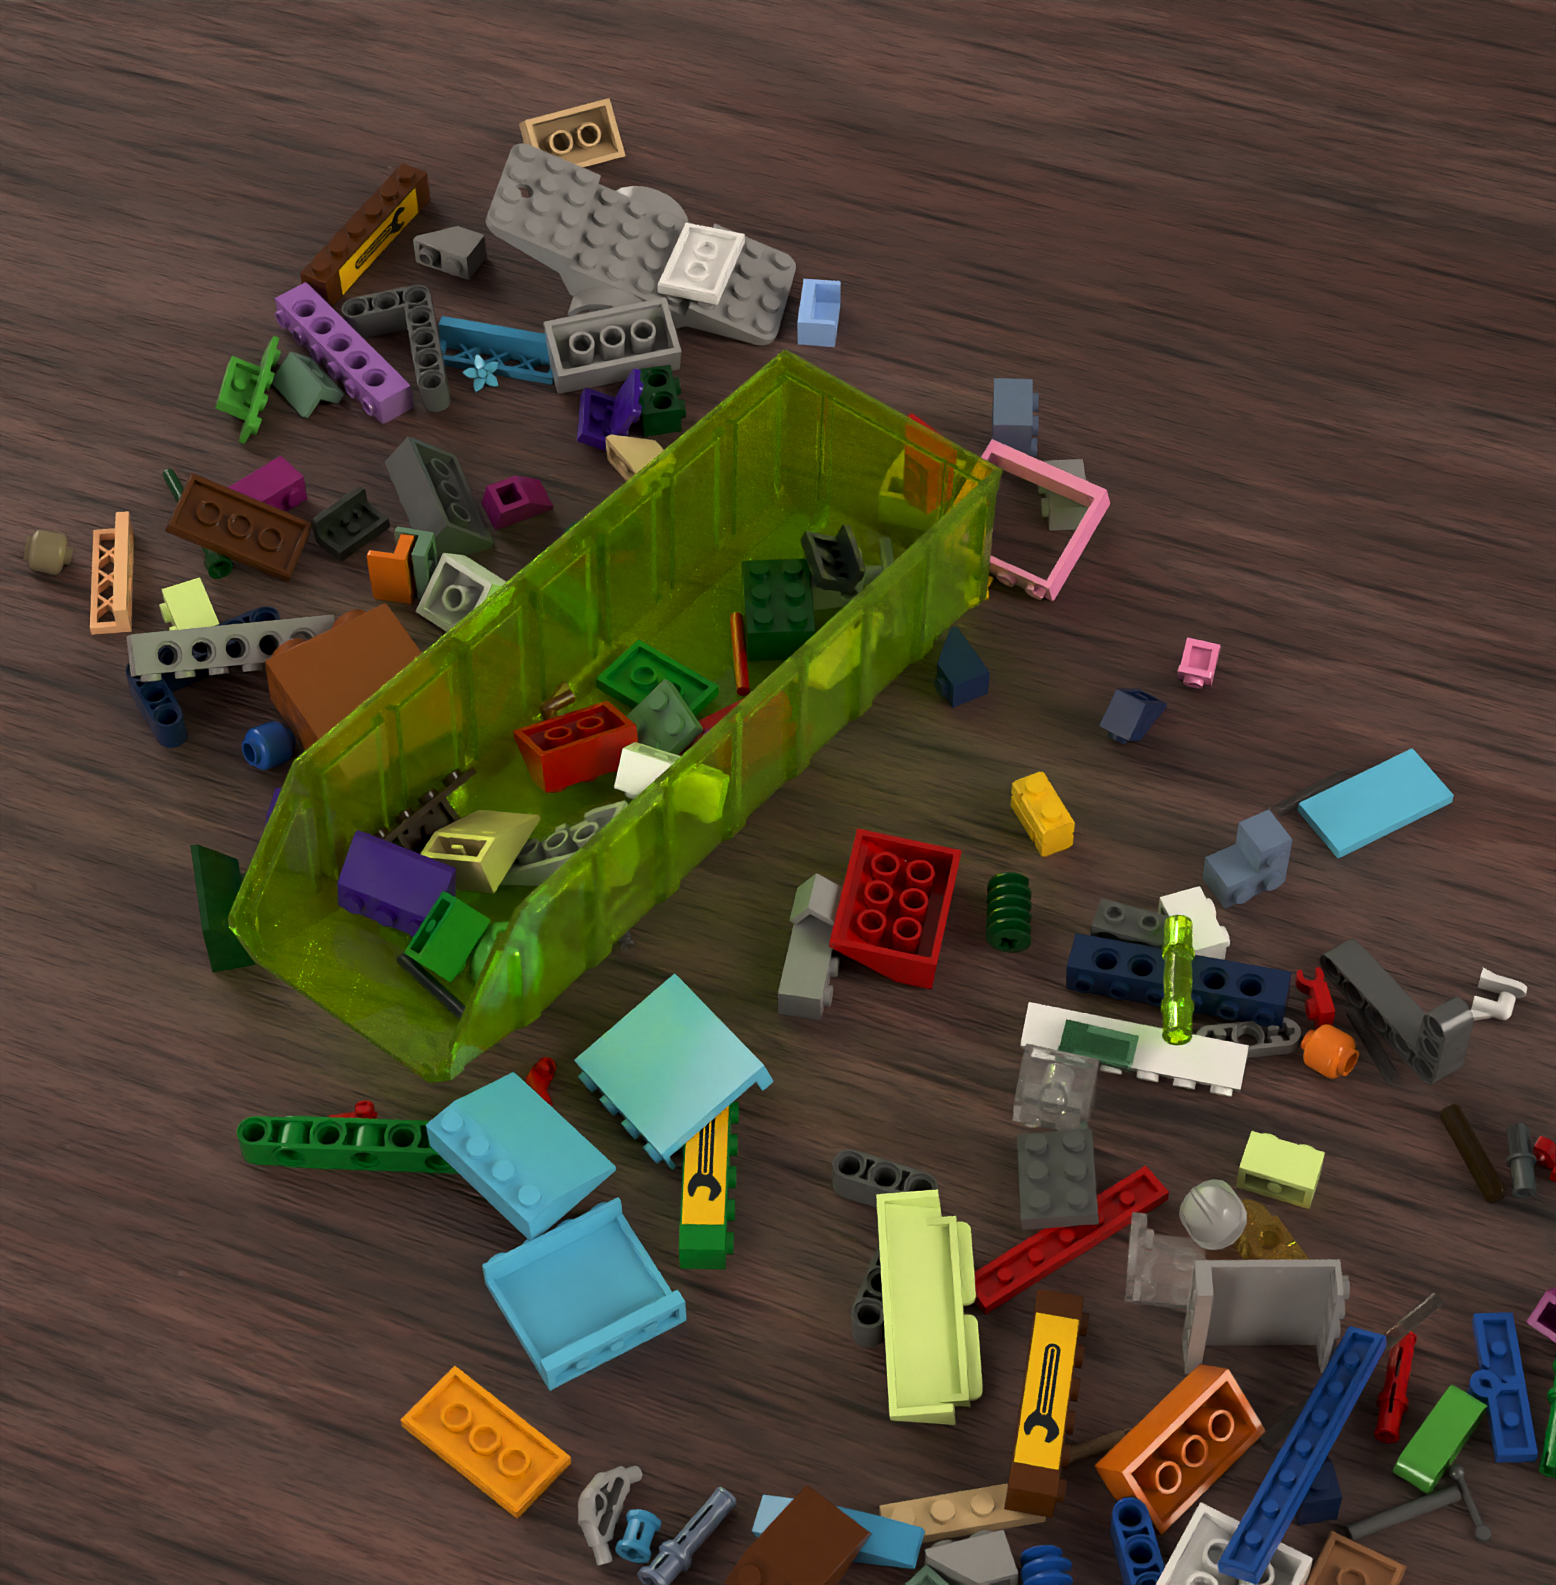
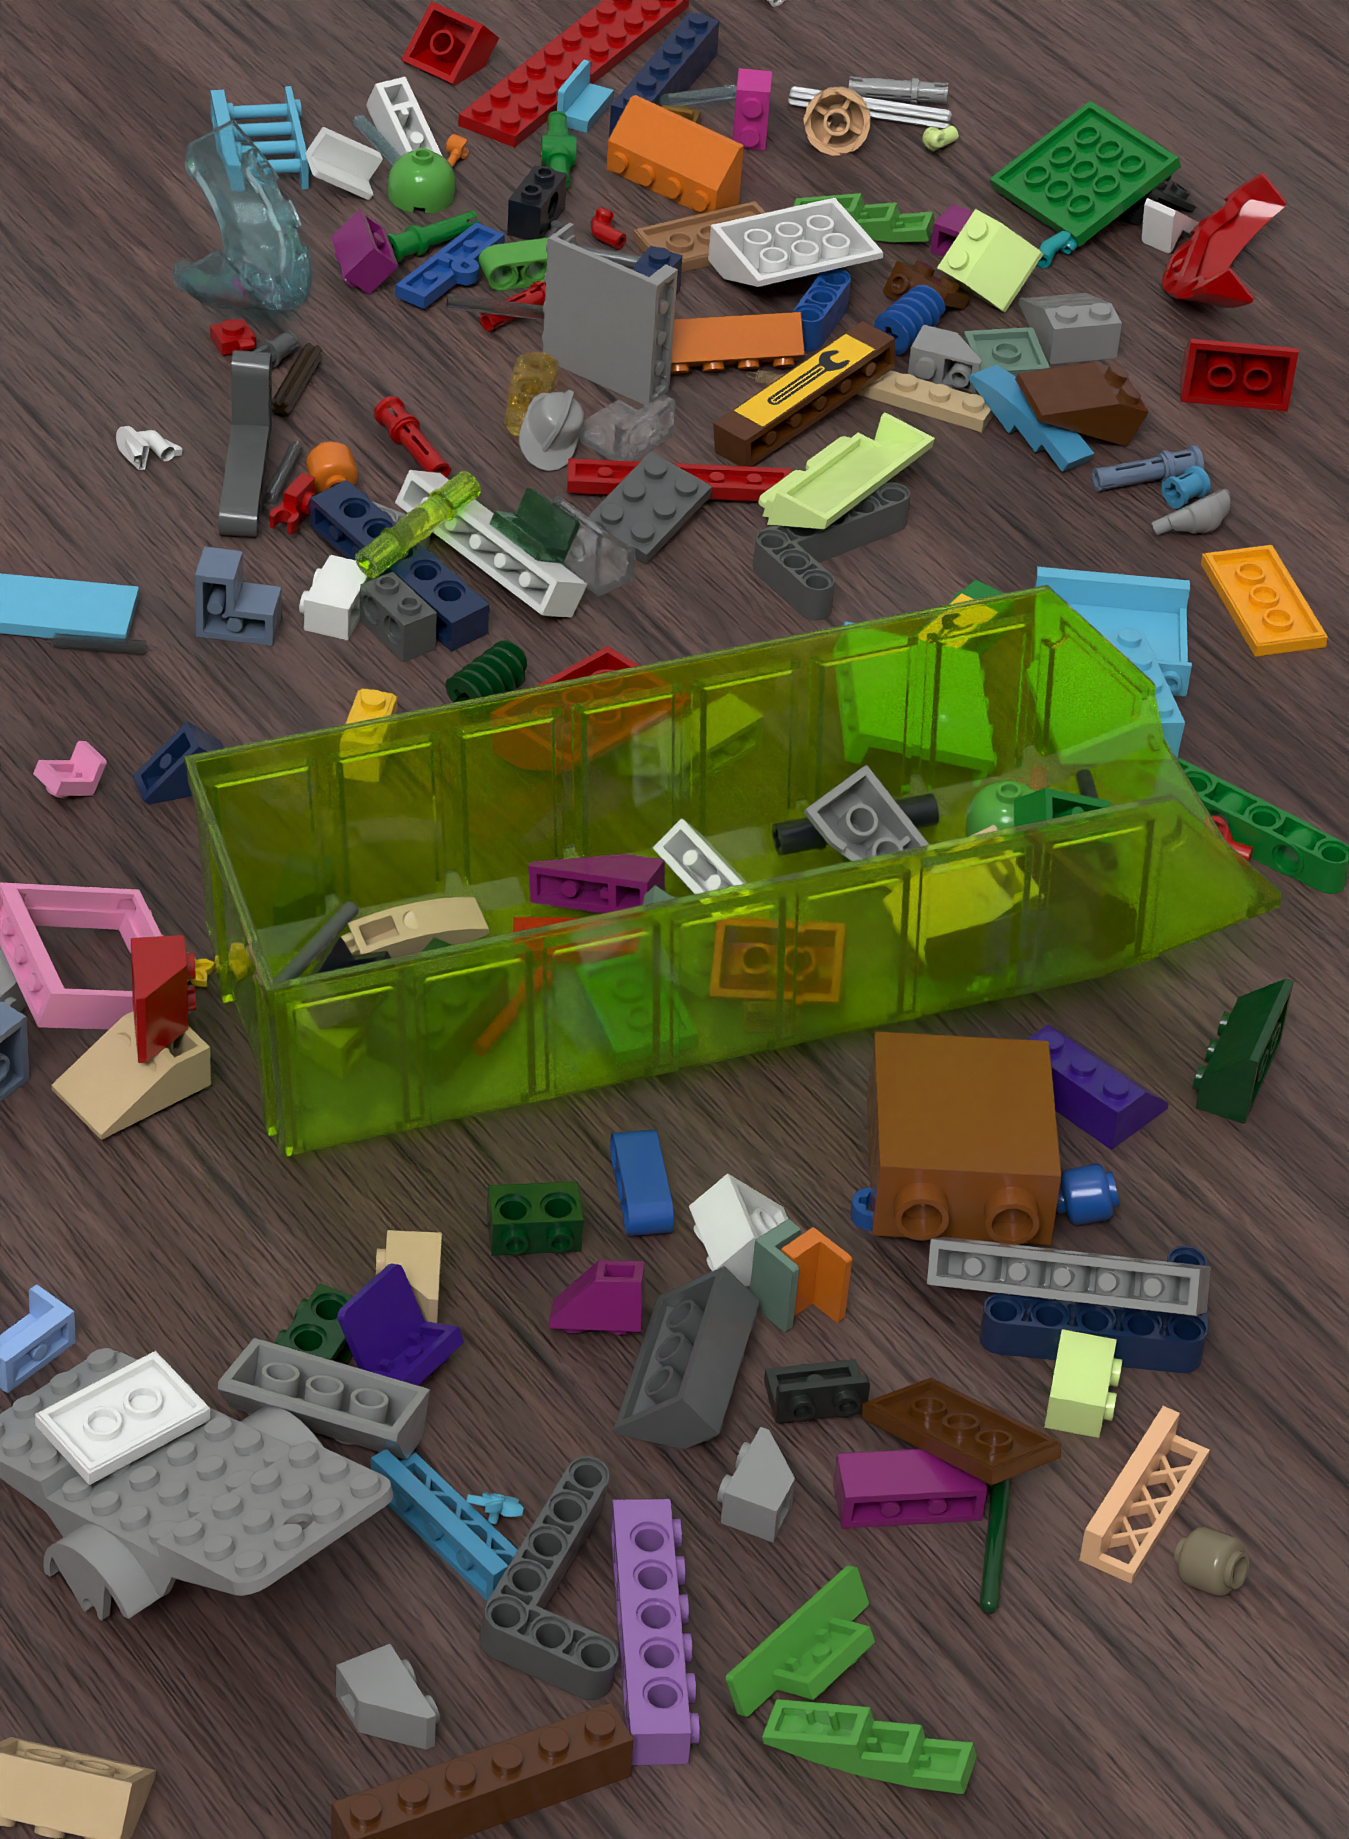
camera: 150 degrees left, 10 degrees down
(177, 366) = (879, 1750): none -> bright green slope
(305, 384) = (725, 1615): sand green panel -> none
(339, 453) = (759, 1491): none -> light grey slope
(1280, 1169) = (462, 432): yellowish green brick -> none
(1302, 1455) = (687, 253): blue tile -> none
(1335, 1147) = (405, 430): none -> red pin
(1435, 1550) = (604, 231): none -> red arm
(1515, 1523) = (536, 203): none -> black brick

